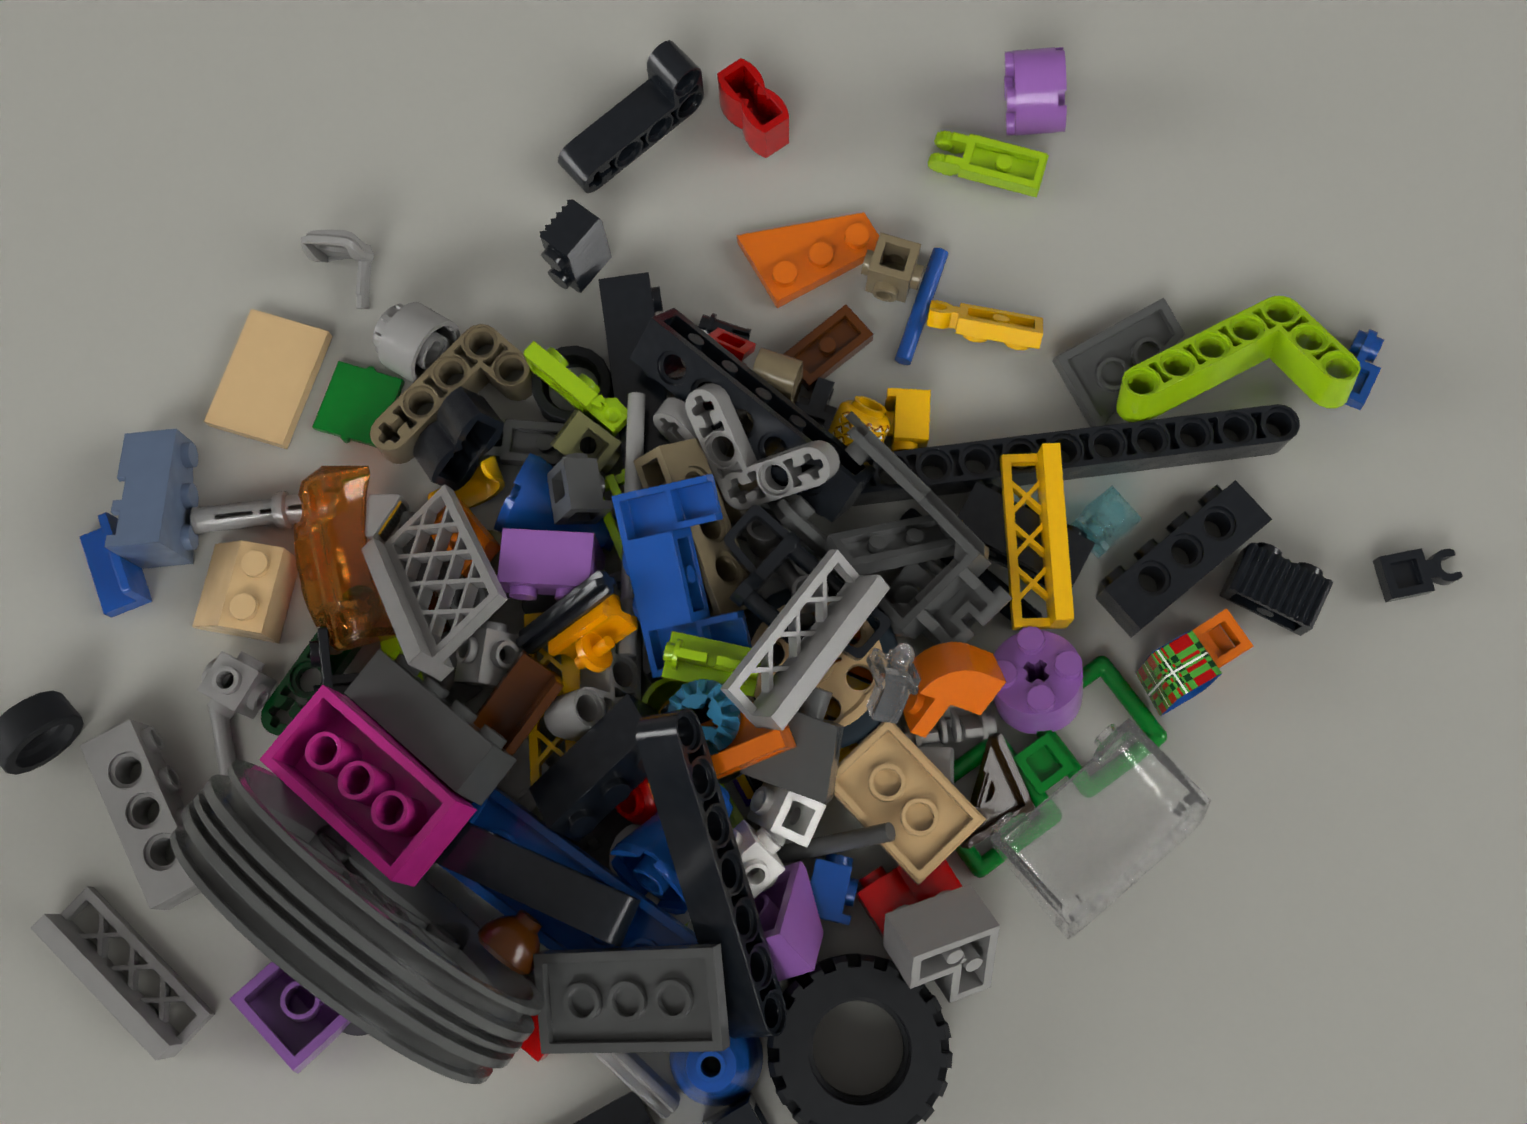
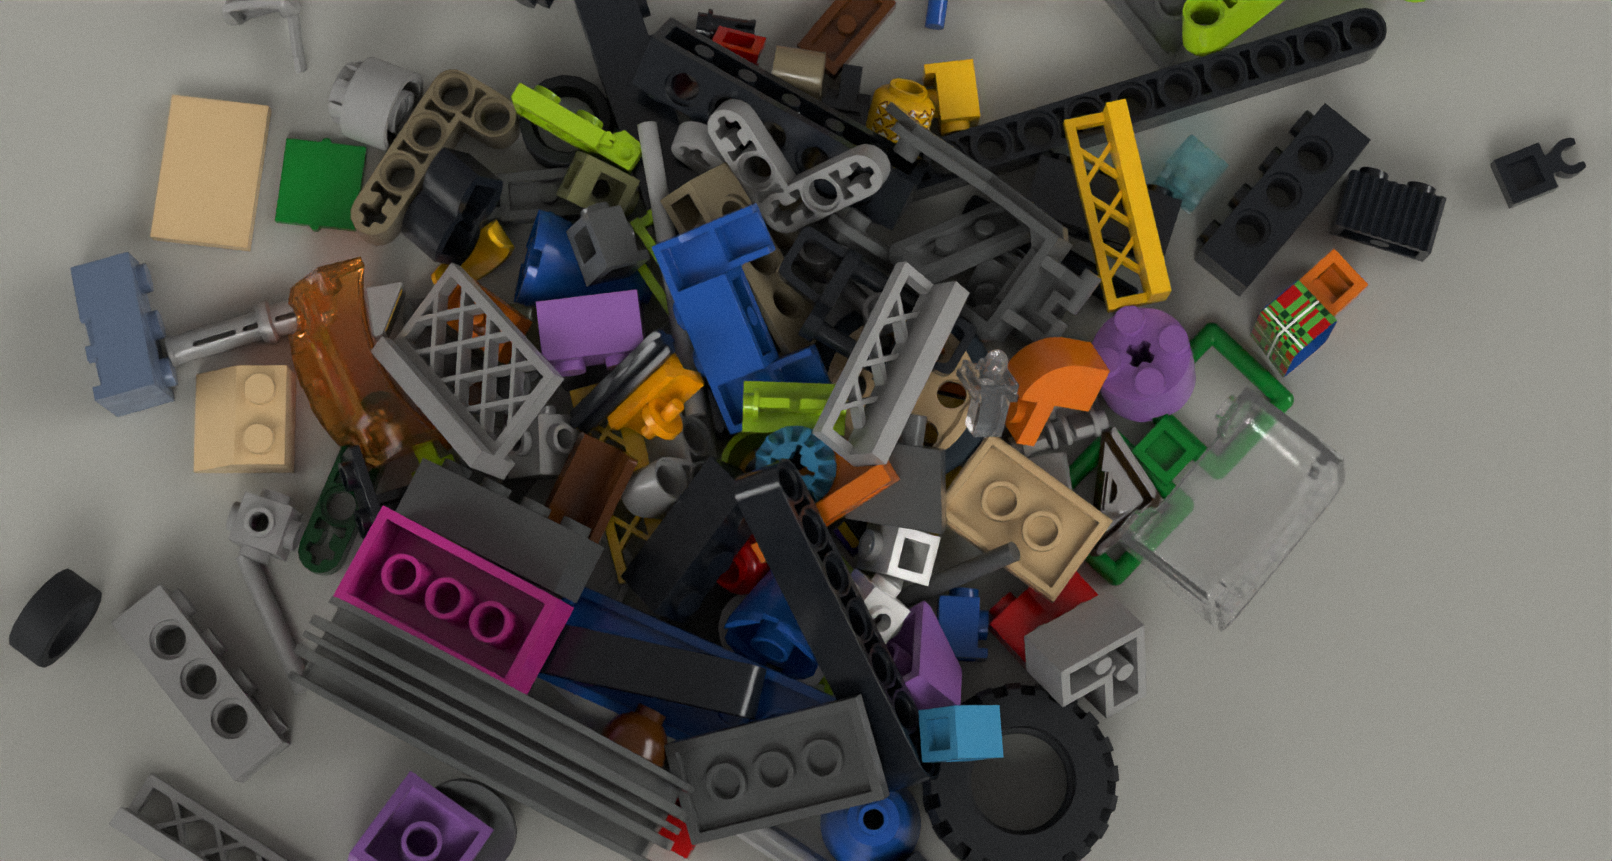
camera: 15 degrees left, 5 degrees up
(117, 581) = (88, 425): blue panel -> none
(808, 998) = (960, 733): none -> dark azure brick

